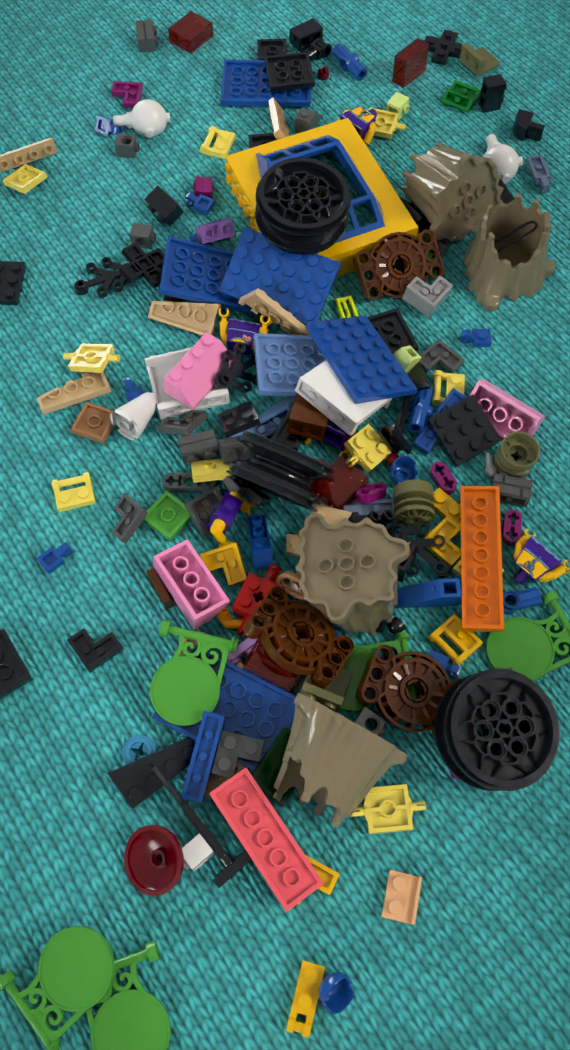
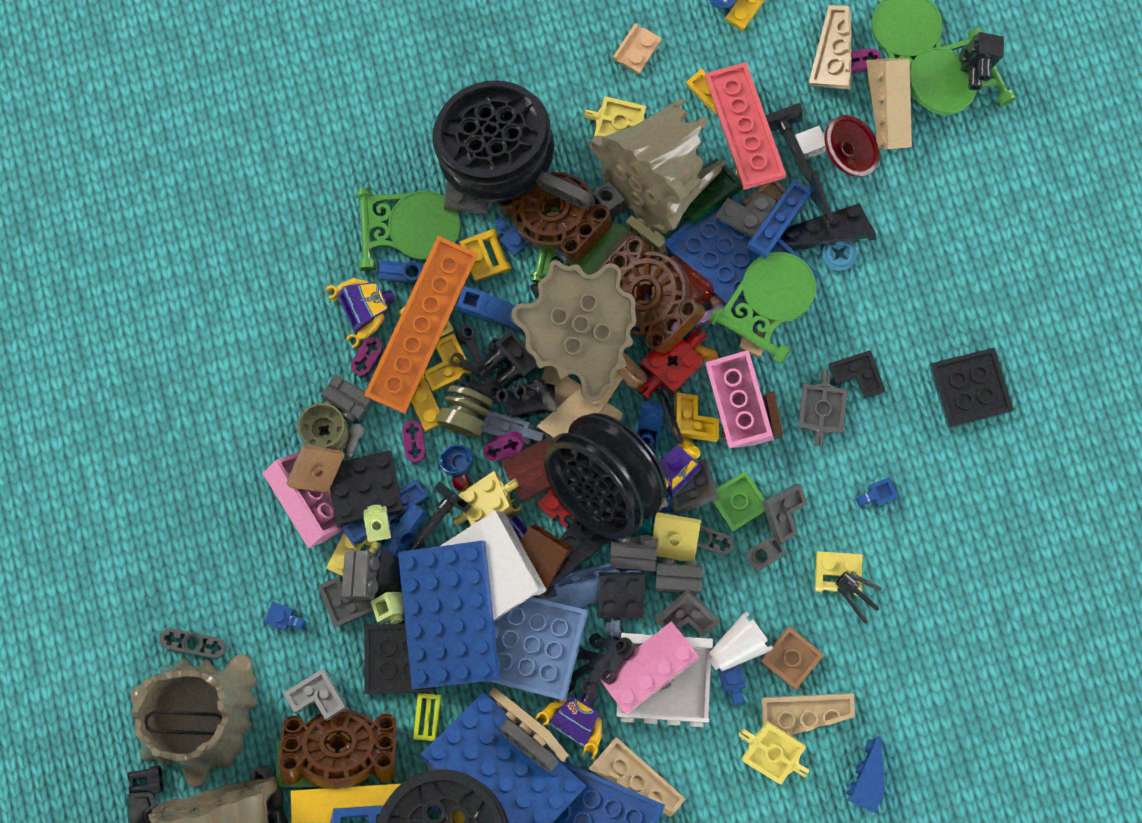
camera: 160 degrees left, 15 degrees up
(17, 359) = (869, 784): none -> blue slope
(40, 1002) = (980, 57): none -> black brick
(61, 478) = (848, 583): none -> black plant
(118, 609) = (822, 408): none -> dark grey plate
(125, 924) = (891, 101): none -> tan wedge
(134, 482) = (773, 550): none -> dark grey brick
(167, 963) = (860, 56): none -> magenta beam
(199, 964) = (833, 54): none -> tan wing
(235, 400) = (613, 628): none -> sand blue plate
(239, 550) = (660, 393): none -> black piece
(281, 296) = (528, 746): none -> dark grey beam
(410, 702) = (564, 190): none -> dark grey beam
(437, 367) = (360, 575): none -> dark grey brick
(442, 399) = (377, 523): none -> yellowish green brick
(508, 420) = (315, 468): none -> medium nougat plate
(538, 300) = (178, 634): none -> dark grey beam

